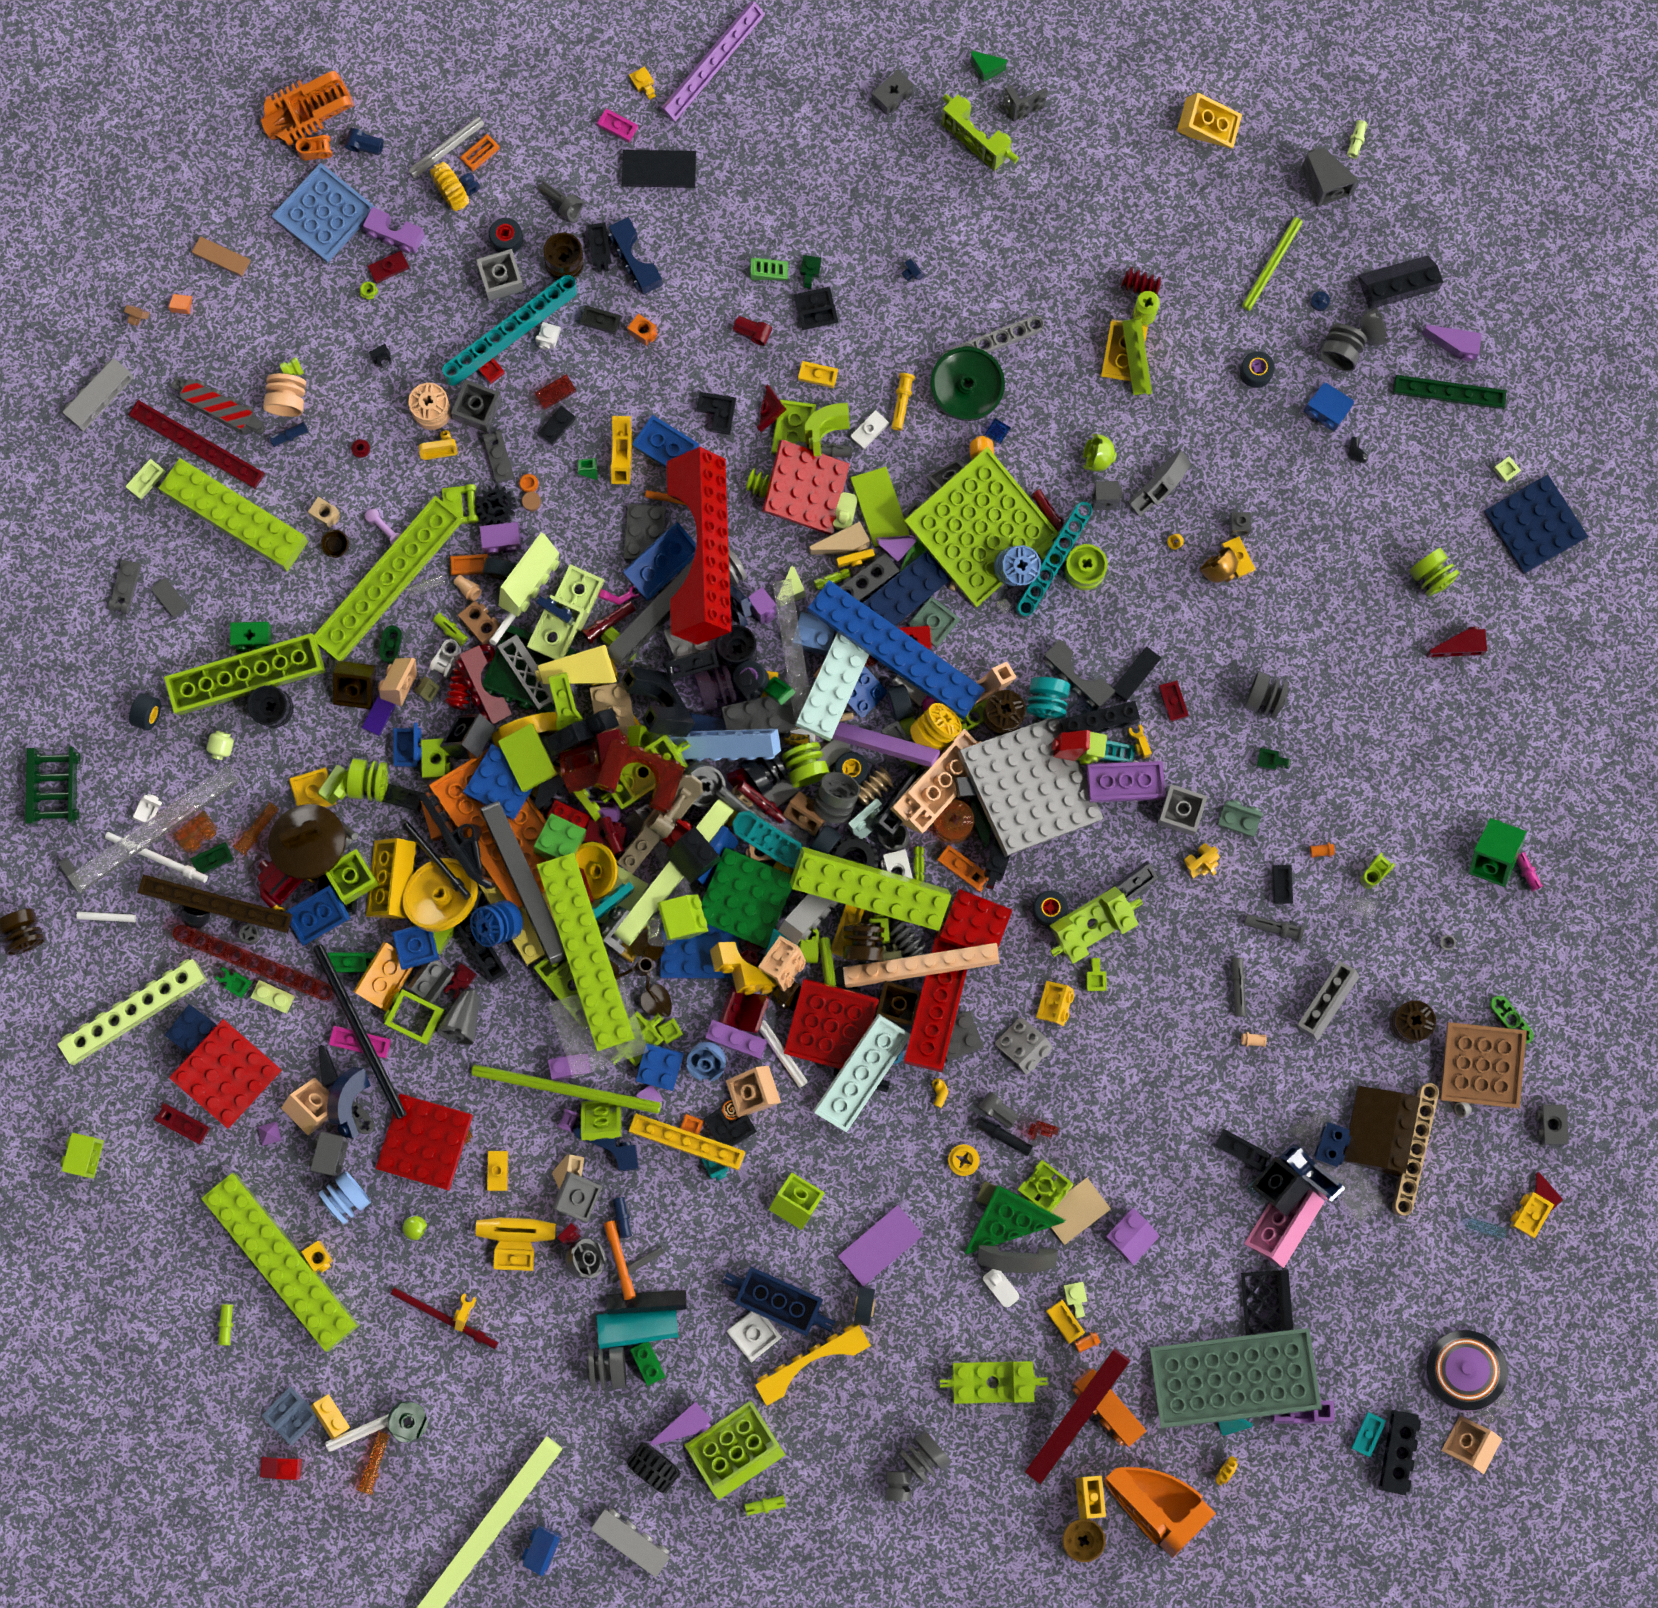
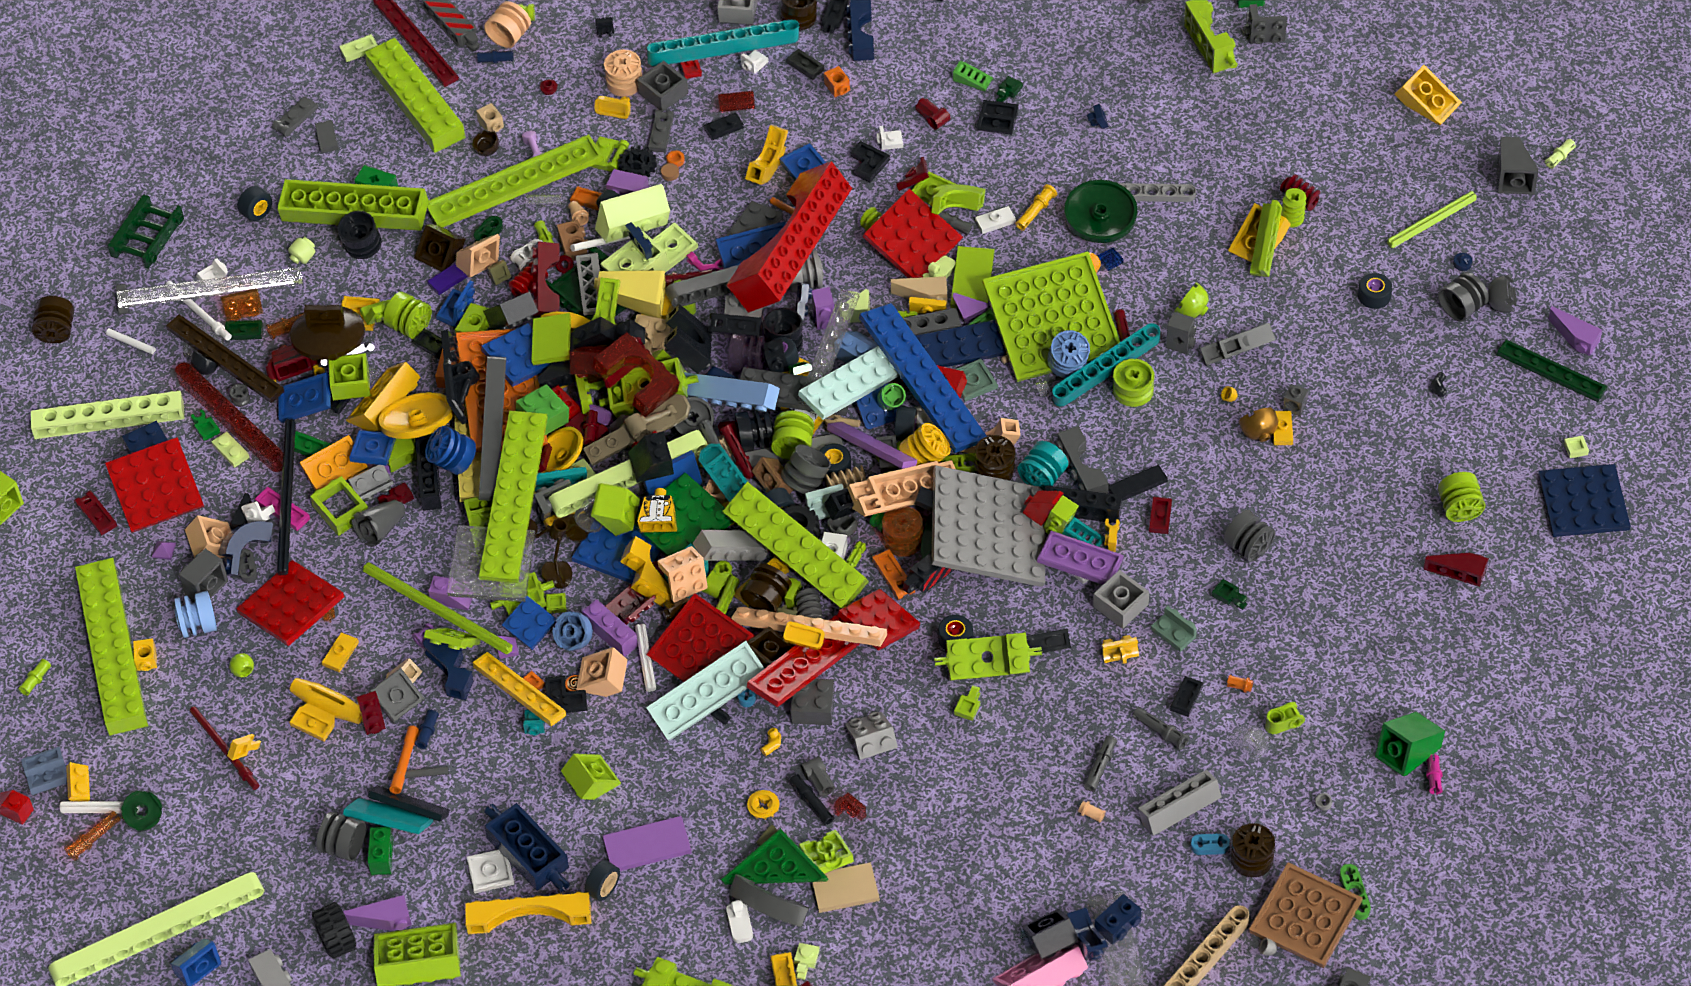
camera: 30 degrees right, 25 degrees down
(344, 1061) = (254, 513): none -> white bracket
(456, 883) = (434, 406): black bar -> none
(585, 1259) = (374, 743): dark grey cylinder -> none
(588, 468) = (733, 165): green slope -> none
(725, 376) = (889, 139): none -> white bracket
(726, 906) = (657, 513): none -> torso
(818, 374) = (972, 164): yellow plate -> none
(877, 684) = (891, 396): none -> bright green wheel
(926, 983) = (803, 635): none -> yellow piece
(1055, 1003) = (920, 711): yellow bracket -> none
(1132, 1236) = (886, 925): medium lavender slope -> none
(1242, 1150) = (1030, 895): black plate -> none
(1329, 406) = (1428, 341): blue bracket -> none
(1366, 1023) = (1210, 844): none -> dark azure beam
(1382, 1130) = (1175, 929): dark brown slope -> none
(1400, 281) = (1546, 272): black slope -> none

